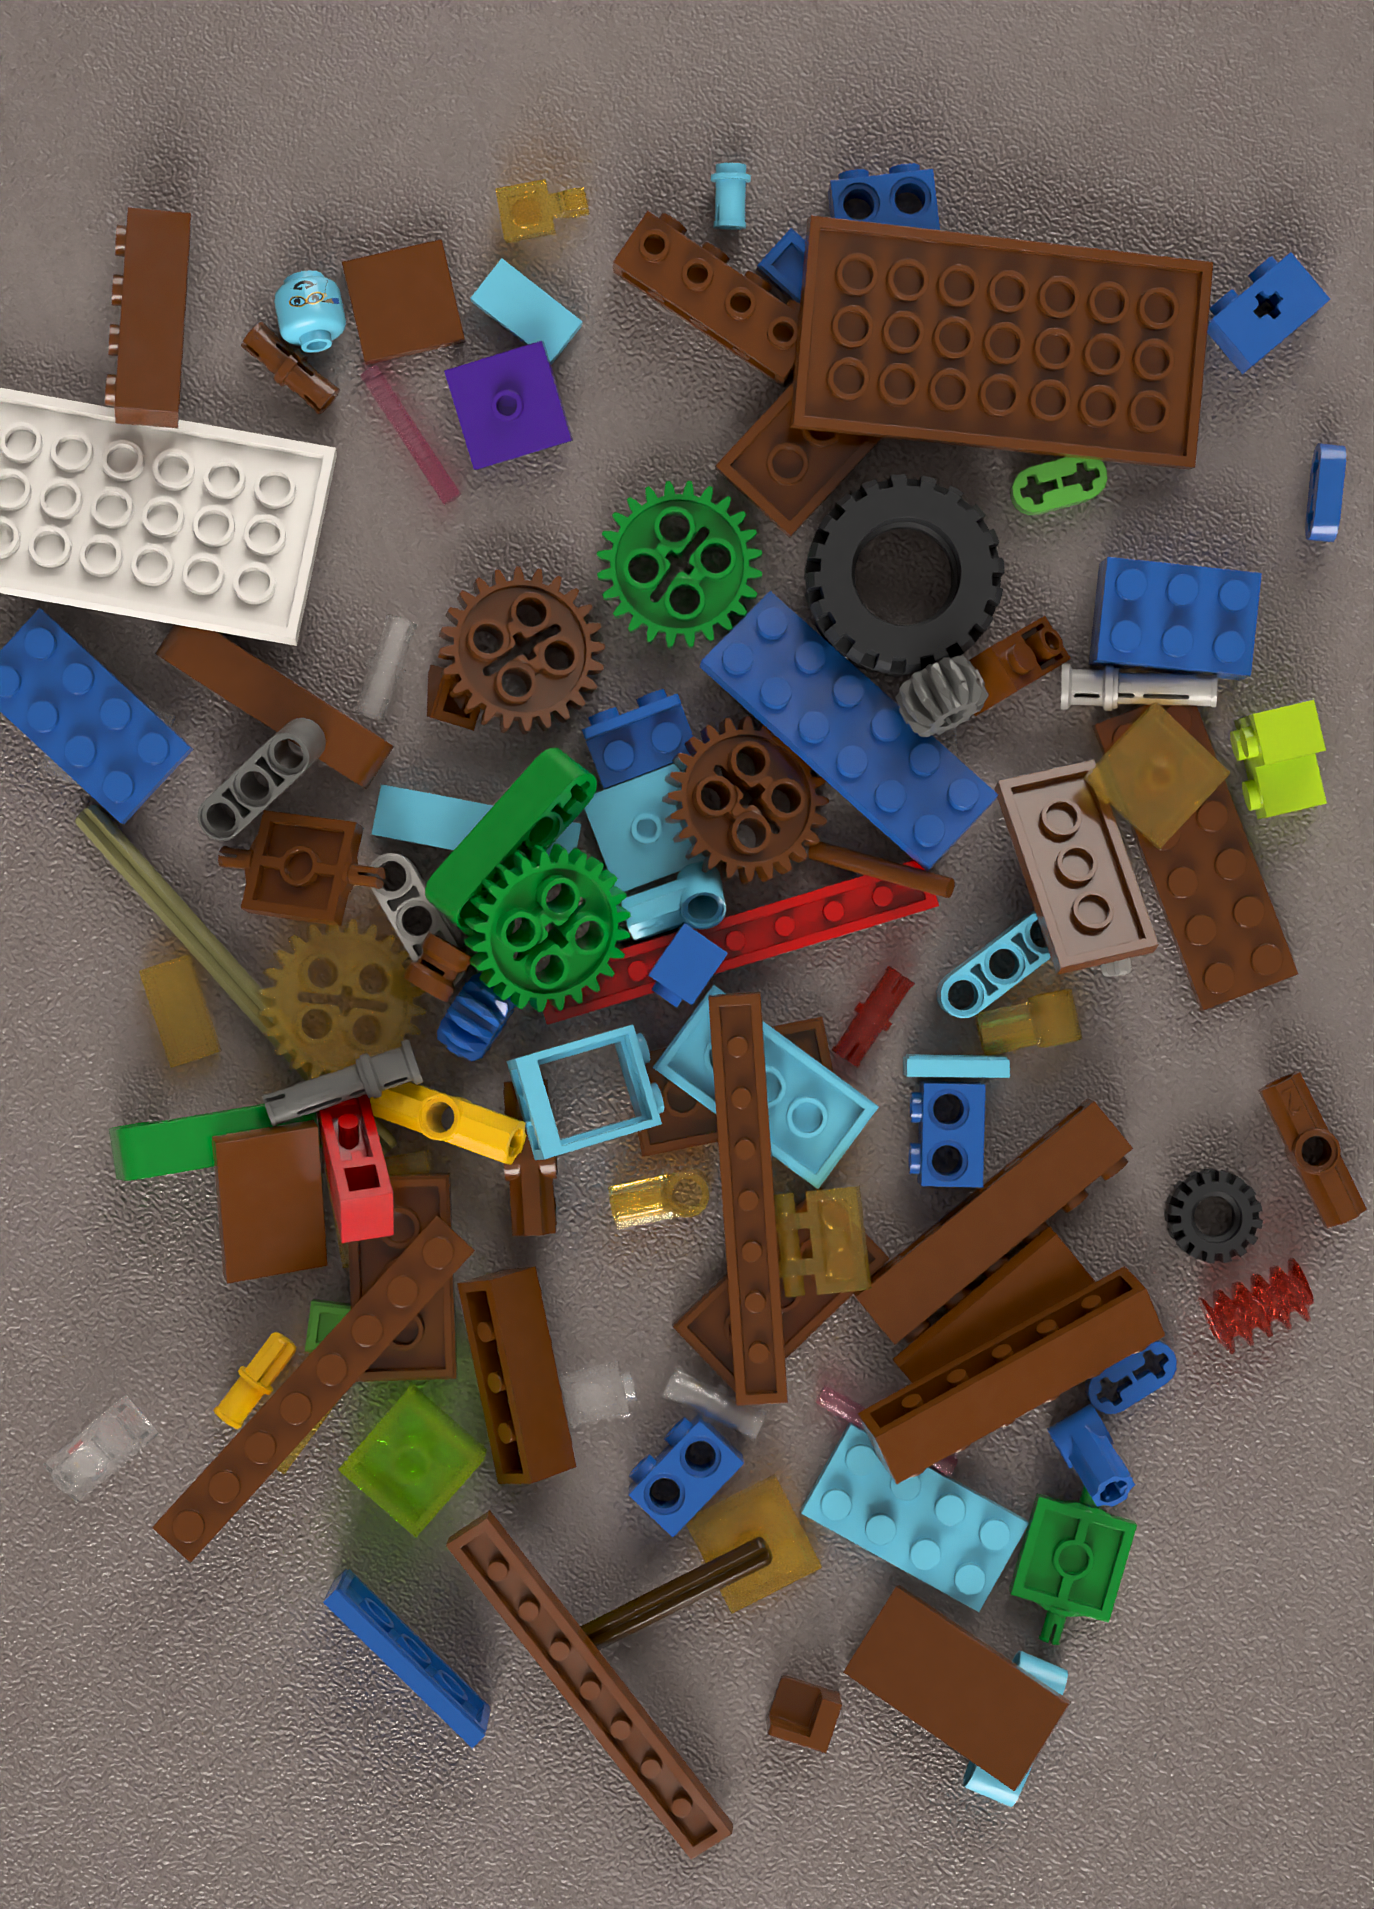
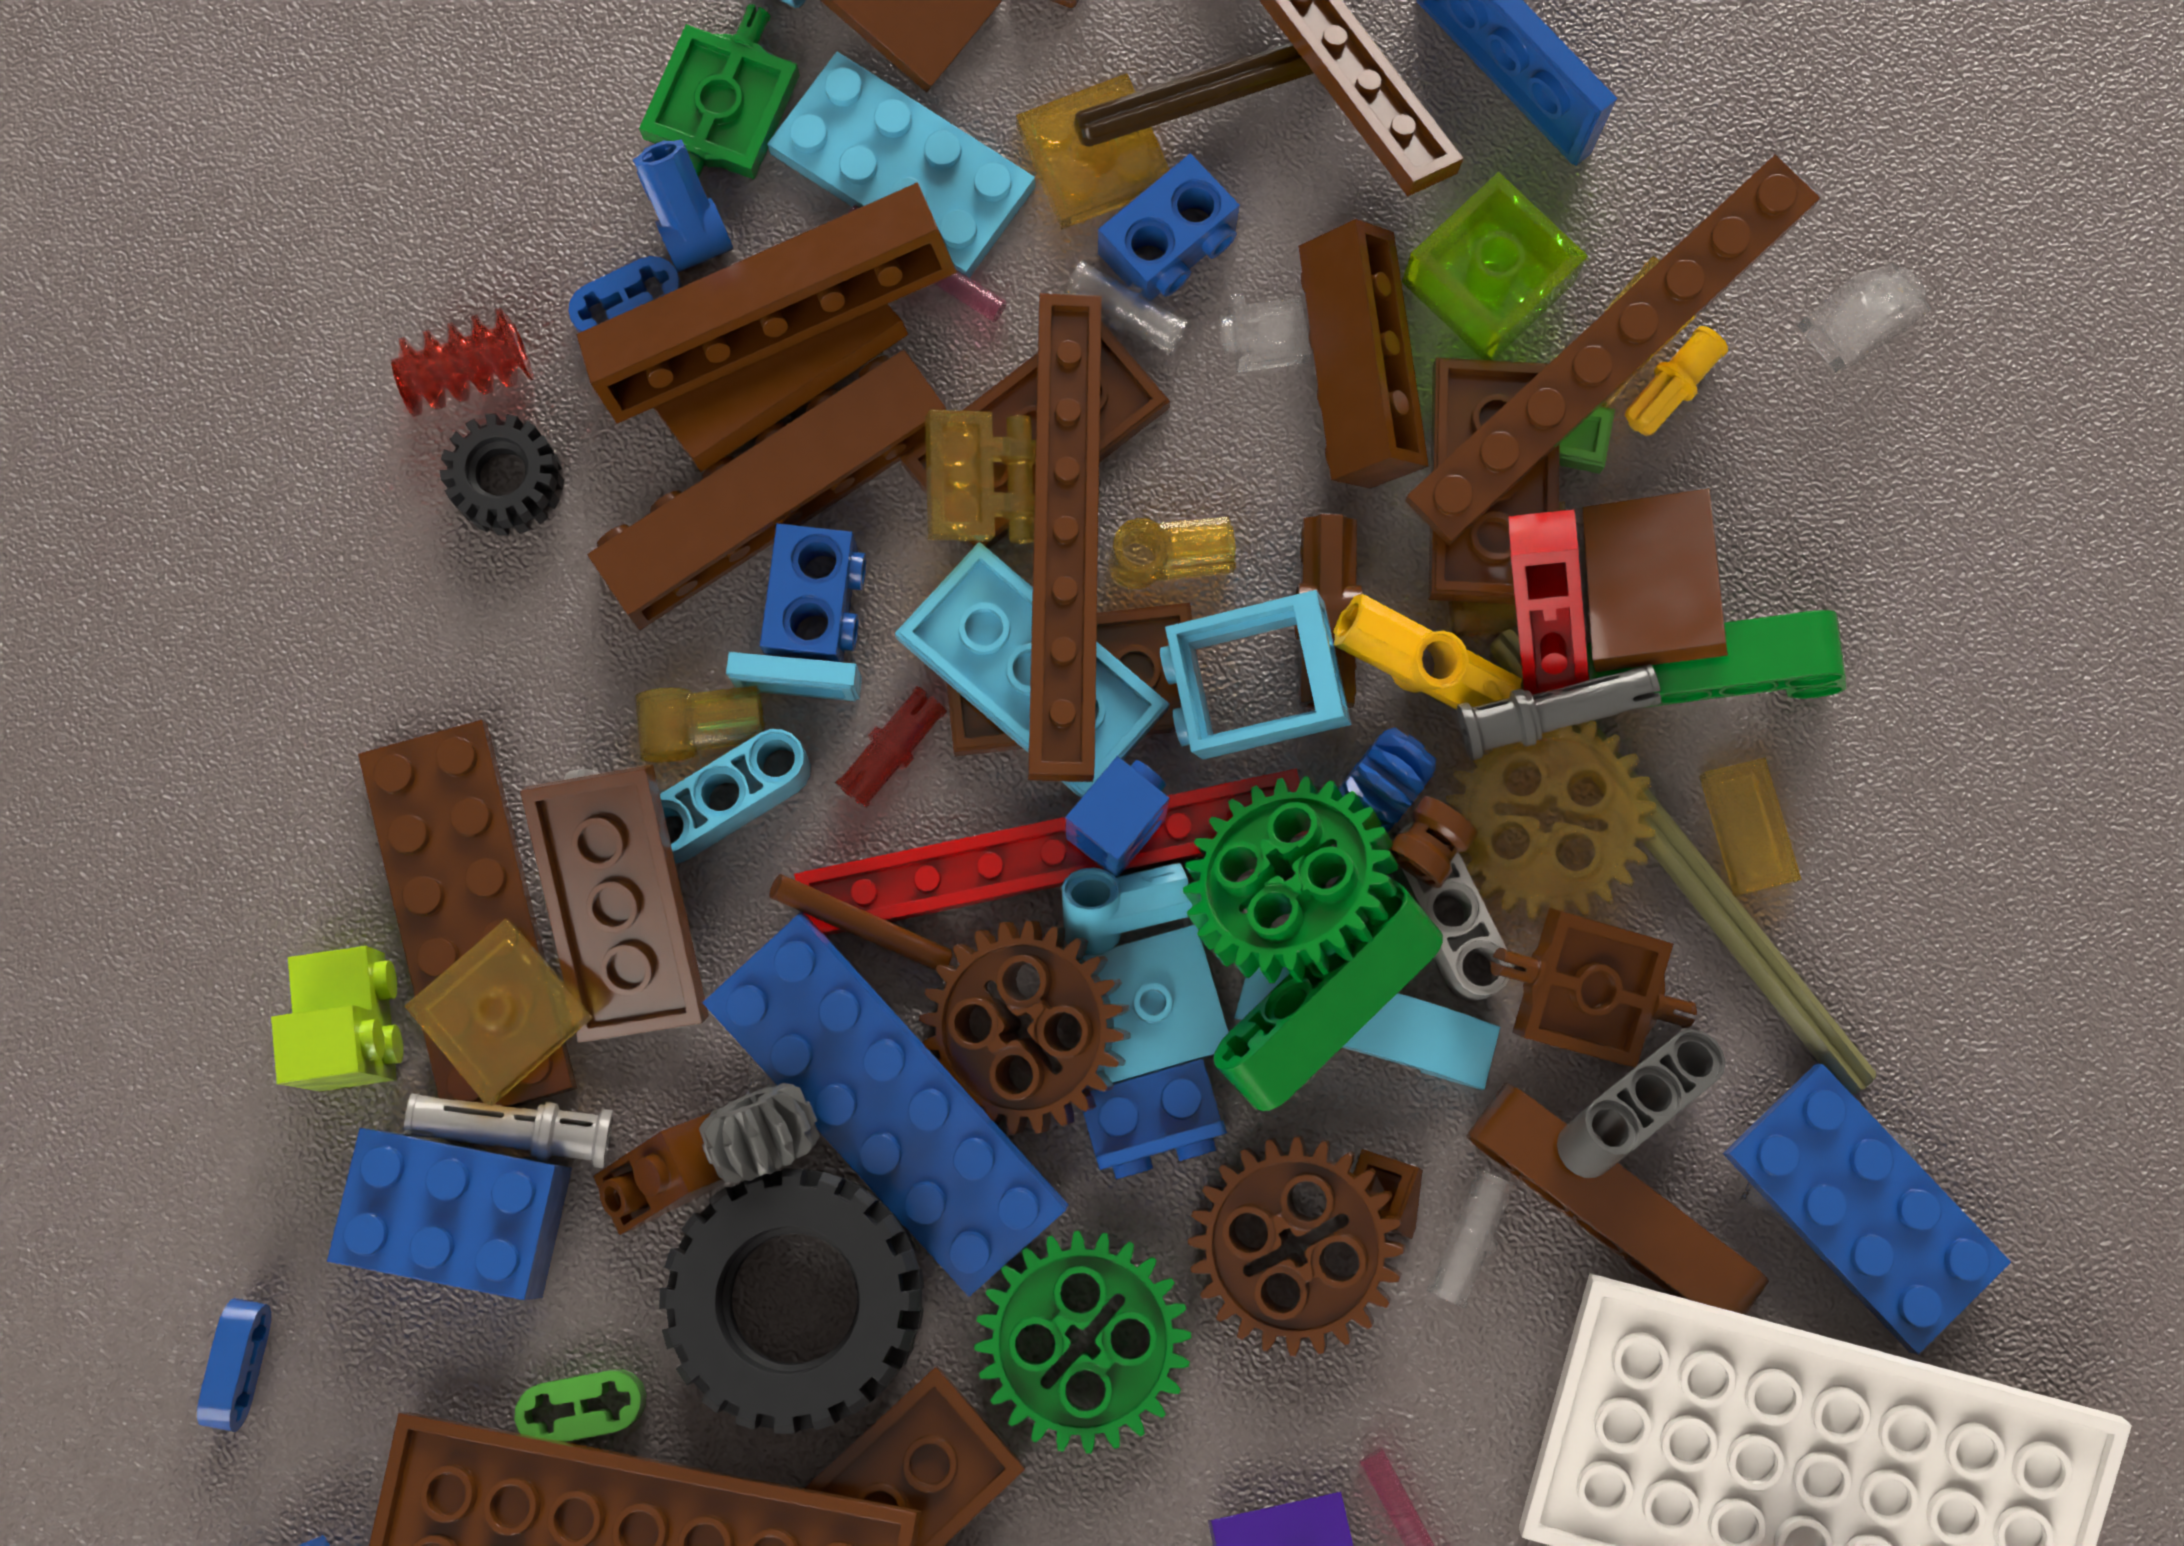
camera: 175 degrees left, 10 degrees down
(1327, 1178) = (358, 508): reddish brown piece -> none

